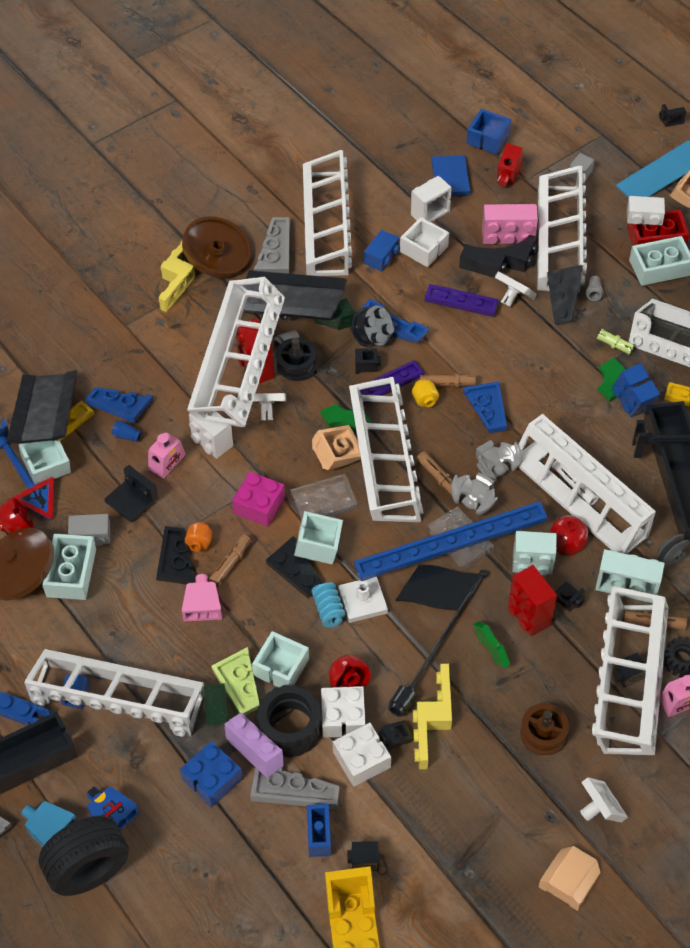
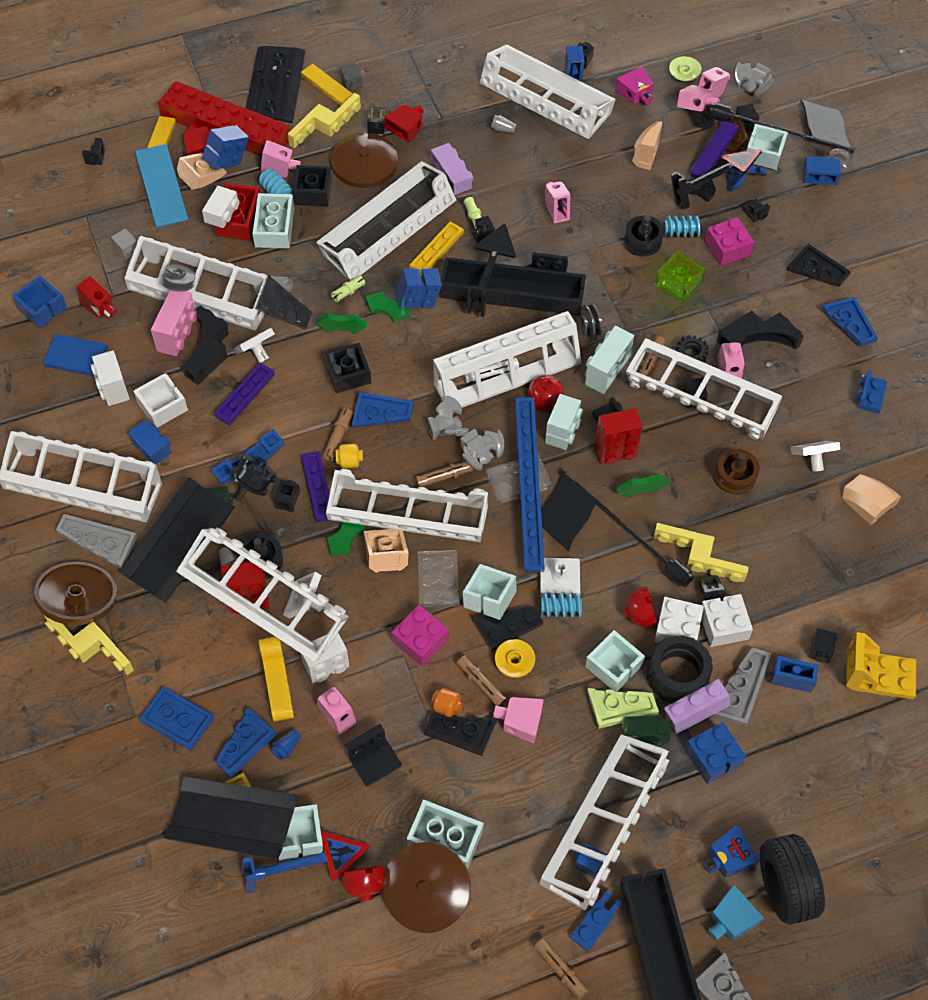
camera: 75 degrees left, 5 degrees up
(91, 525) = (401, 807): light grey brick -> none
(130, 352) = (176, 718): none -> blue tile
(171, 411) = (276, 679): none -> yellow beam
(258, 573) = (516, 650): none -> yellow dish
(520, 364) = (348, 367): none -> black brick
(548, 205) = (178, 278): none -> dark grey piece
(570, 346) = (349, 323): none -> green tile

